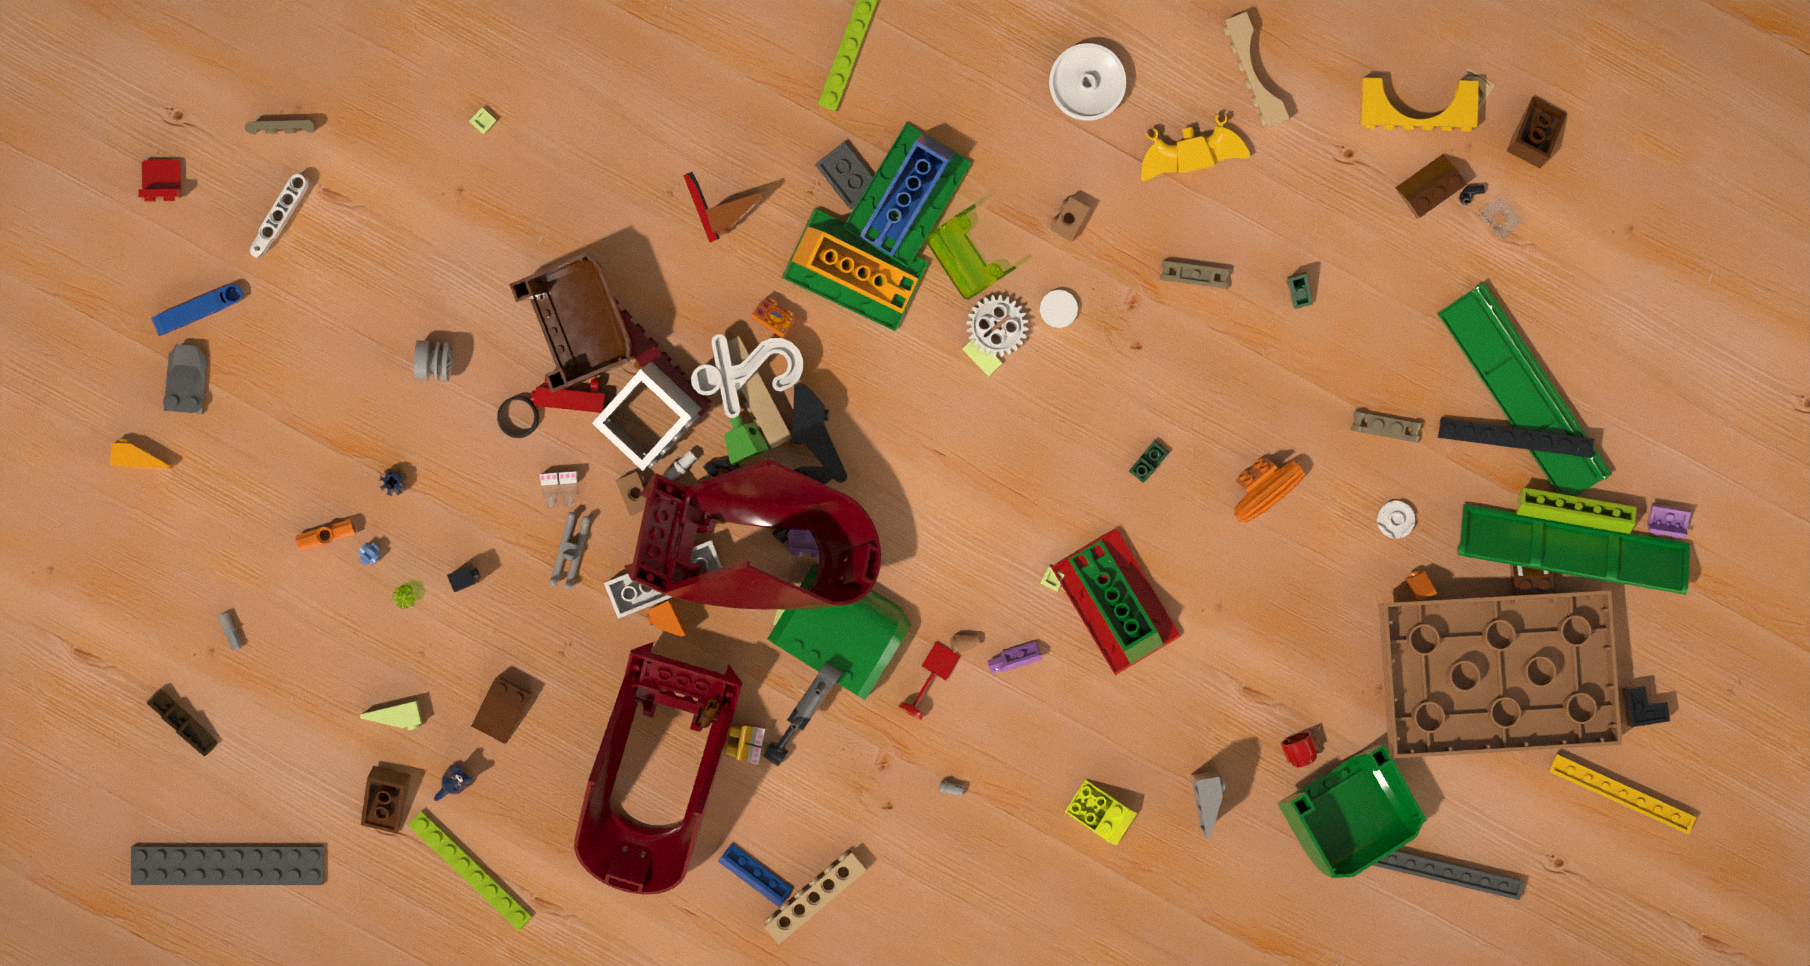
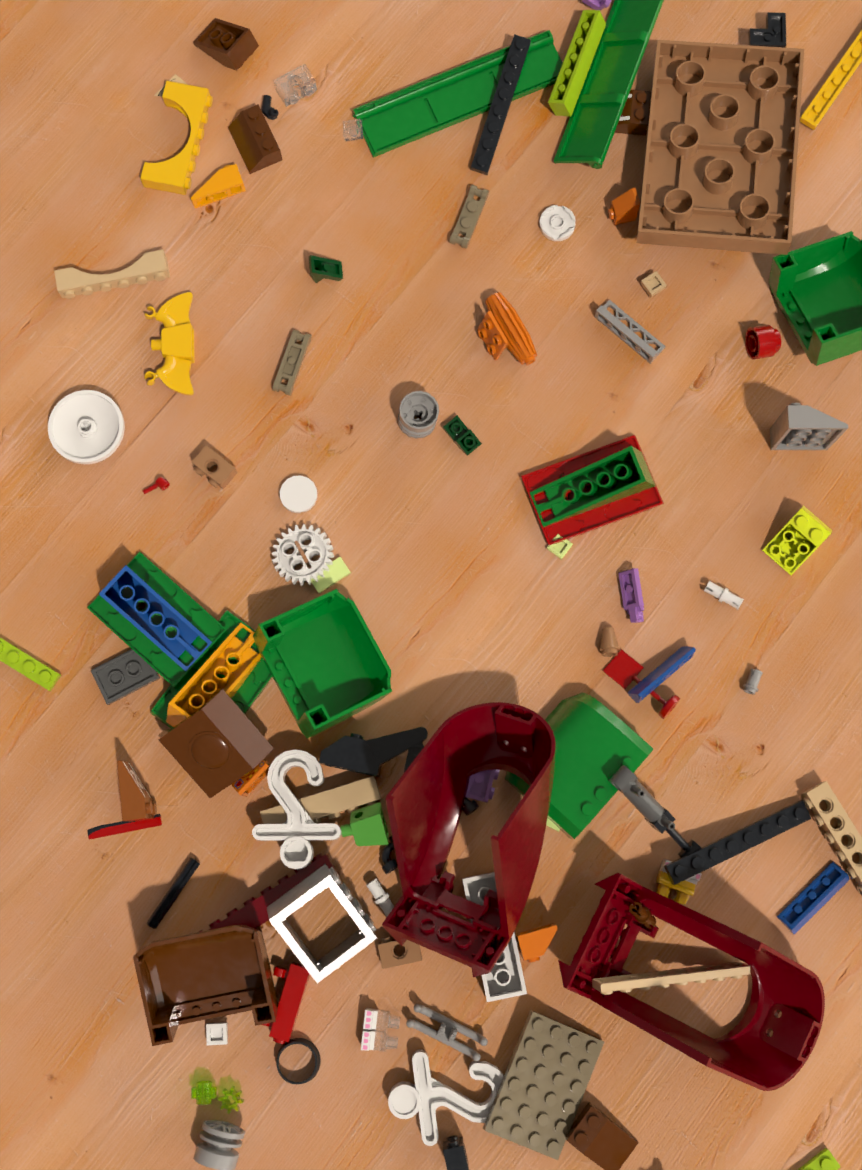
camera: 75 degrees left, 10 degrees down
(474, 336) = (203, 1092): none -> clear neon green gear
(476, 366) = (235, 1096): none -> clear neon green gear
(511, 544) = (429, 1094): none -> white piece
(528, 337) = (217, 1033): none -> white plate
(540, 648) = (543, 1085): none -> dark tan plate
(648, 268) = (173, 893): none -> black axle
(659, 755) = (663, 978): none -> tan plate
(793, 284) = (216, 744): none -> reddish brown panel
(793, 795) = (737, 842): none -> black plate
(892, 370) = (324, 661): none -> green slope
(942, 698) = (661, 673): none -> blue slope
(961, 258) = (230, 578): clear neon green windscreen -> none
(1032, 747) = (723, 595): none -> white pin
(1044, 169) = (160, 482): none -> red hand
(1170, 411) = (418, 404): none -> light grey wheel
(1284, 610) = (627, 334): none -> light grey fence
(1344, 629) = (653, 284): none -> tan plate
(1375, 164) = (221, 185): none -> light orange slope
(1460, 287) = (352, 130): none -> clear plate

